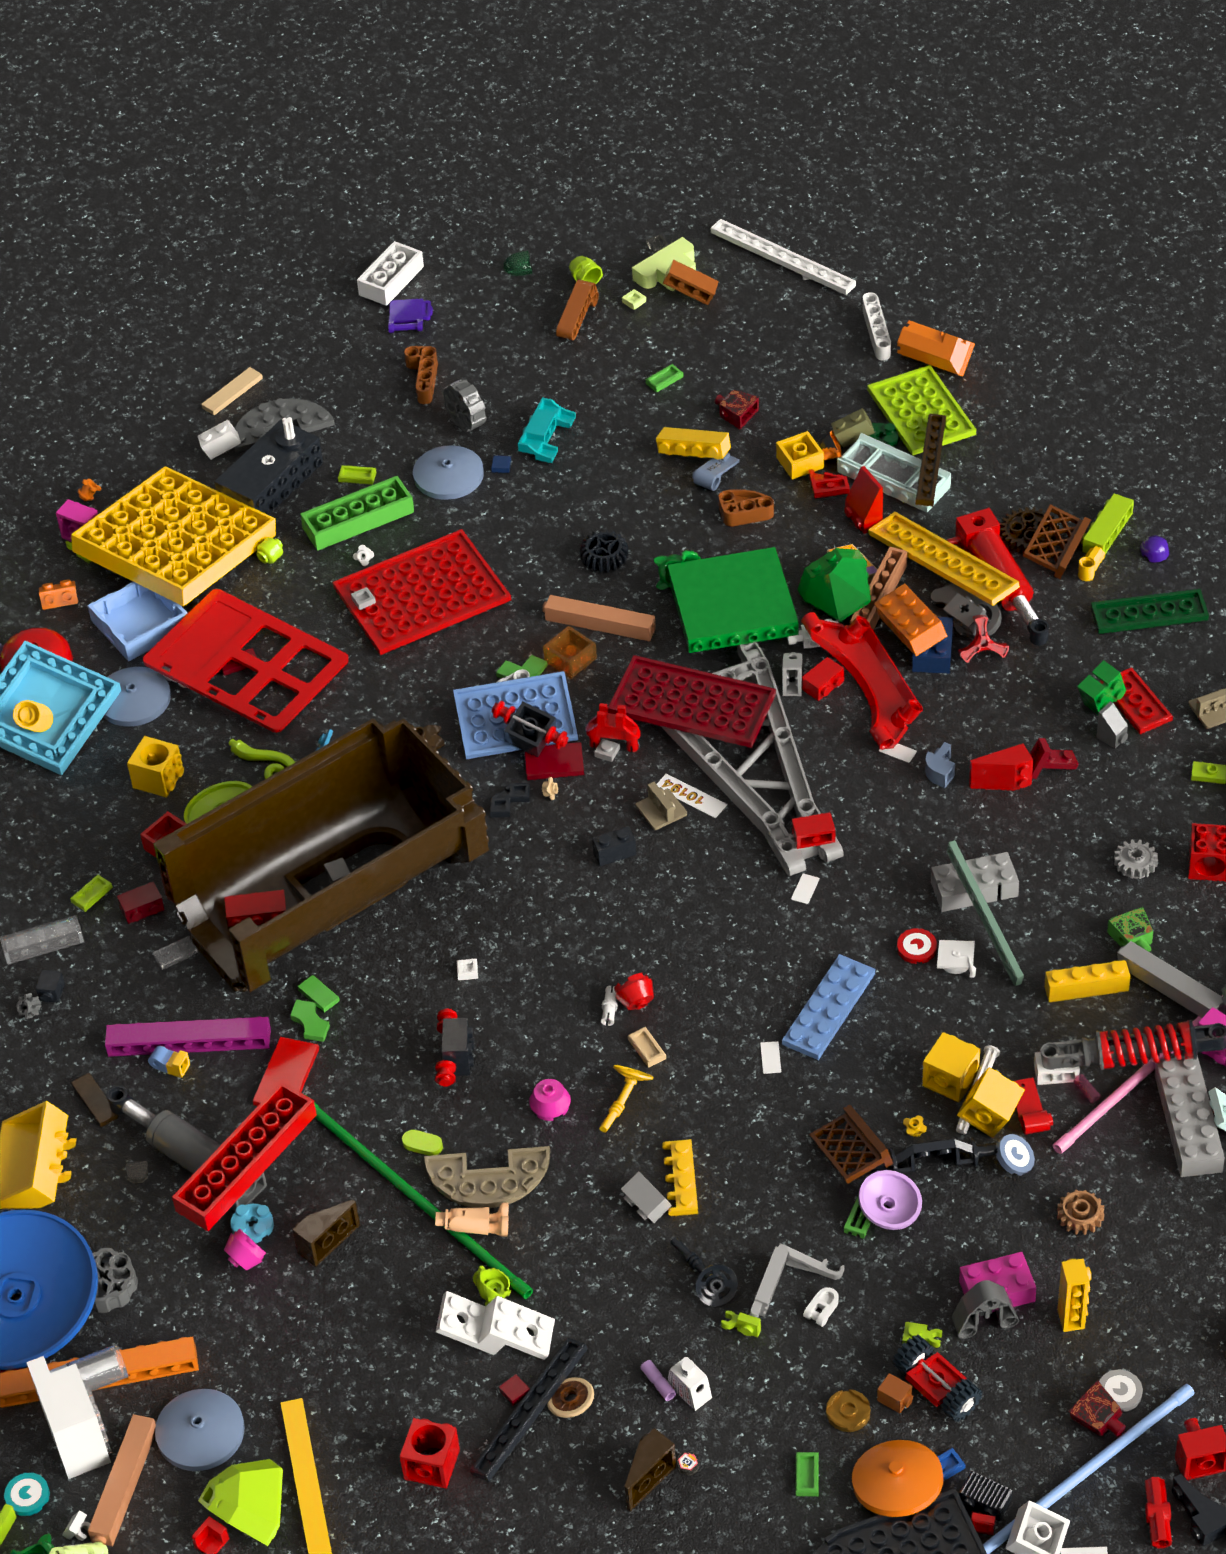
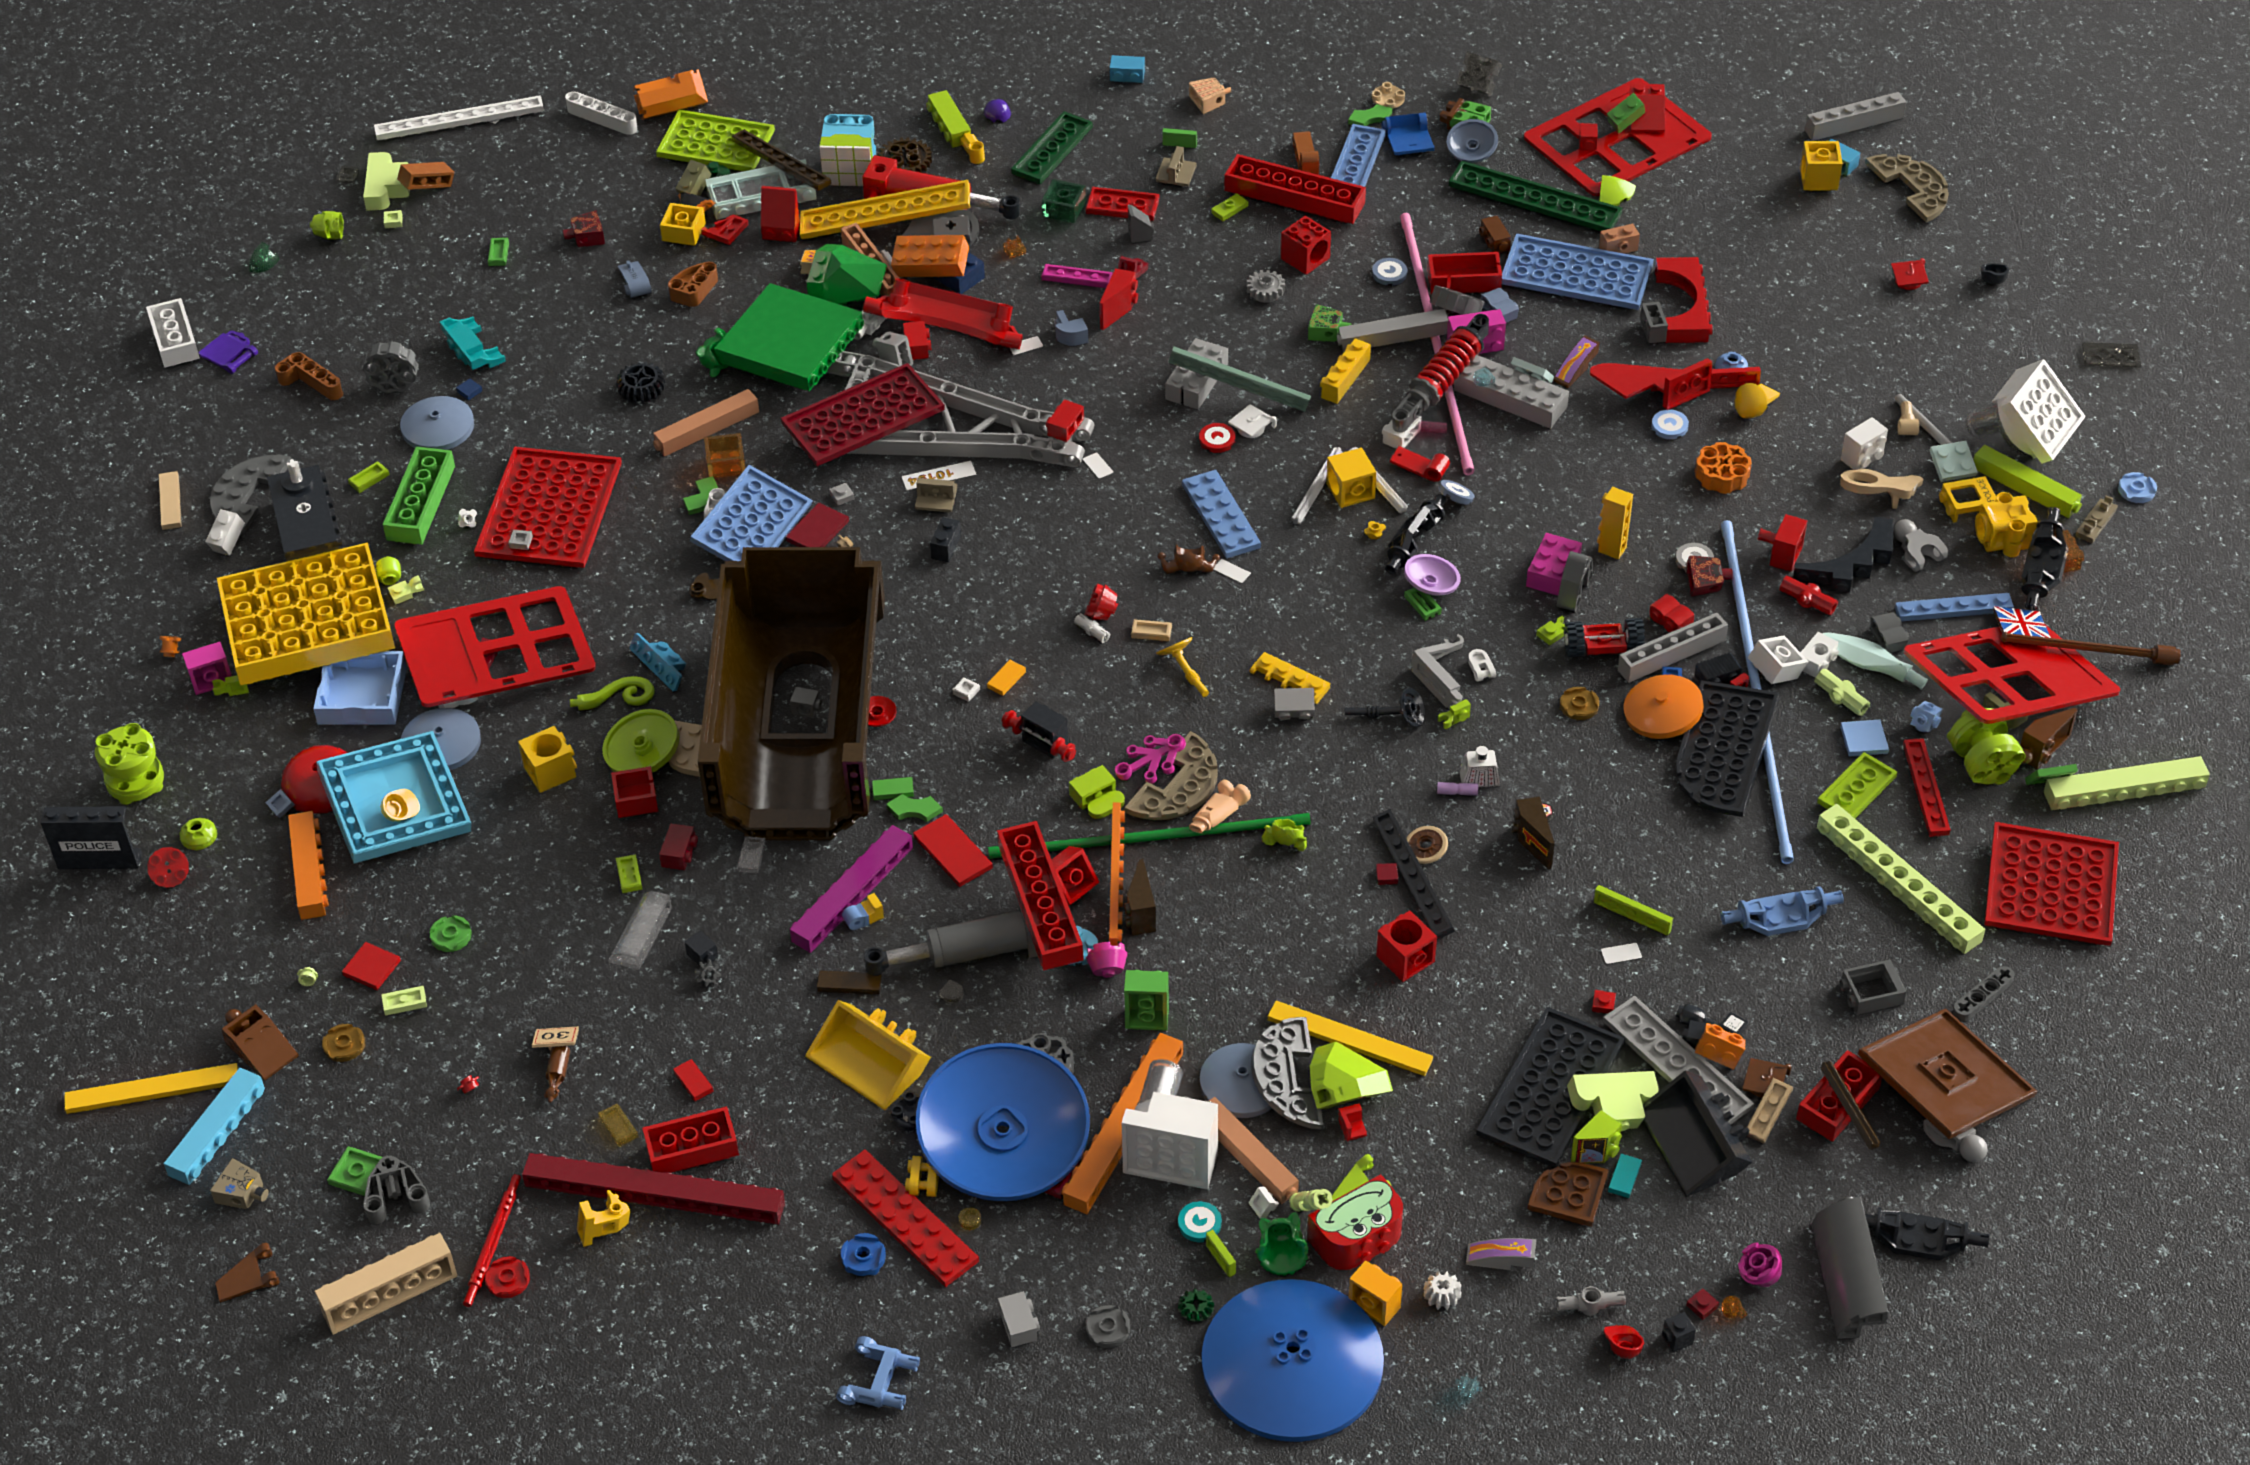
camera: 55 degrees left, 0 degrees up
(58, 594) = (264, 727): orange bracket -> none
(212, 1303) = (1146, 1000): none -> bright green brick
(216, 1442) = (1275, 1072): none -> plate
(258, 906) = (779, 771): red brick -> none
(260, 572) = (402, 591): none -> yellowish green plate
(309, 1166) = (1074, 873): none -> red brick
(350, 1190) = (1117, 867): none -> orange plate
(387, 928) = (881, 711): none -> red dish
(429, 1119) = (1091, 786): none -> lime brick
(495, 1325) = (1327, 847): white bracket -> none
(503, 986) = (1006, 677): none -> light orange tile
(519, 1143) = (1171, 745): none -> dark pink plant
(529, 727) = (784, 514): black brick -> none
(549, 1099) = (1146, 708): dark pink cone -> none
(582, 296) = (359, 243): dark orange beam -> none
(613, 727) = (835, 470): red connector -> none
(693, 443) = (597, 270): yellow brick -> none
(747, 1018) = (1188, 560): none -> reddish brown piece
(807, 1474) = (1611, 754): bright green tile -> none
(864, 1137) = (1365, 554): reddish brown fence -> none
(895, 1393) = (1594, 667): dark orange brick -> none
(918, 1052) = (1313, 491): none -> light grey axle
(977, 1440) = (1672, 647): none -> light grey brick
(982, 641) = (985, 237): piece -> none
(983, 483) = (847, 148): none -> piece
(991, 1102) = (1406, 473): yellow brick -> none
(1003, 667) = (1014, 247): none -> clear orange tile
(1011, 724) = (1076, 276): none -> dark pink tile
(1023, 1414) = (1671, 613): none -> red brick
(1068, 549) = (945, 144): reddish brown fence -> none
(1080, 1211) = (1535, 489): medium nougat gear -> none
(1083, 657) = (1063, 200): none -> clear green brick
(1098, 695) = (1104, 206): green piece -> none
(1167, 1082) = (1483, 377): none -> clear light blue tile

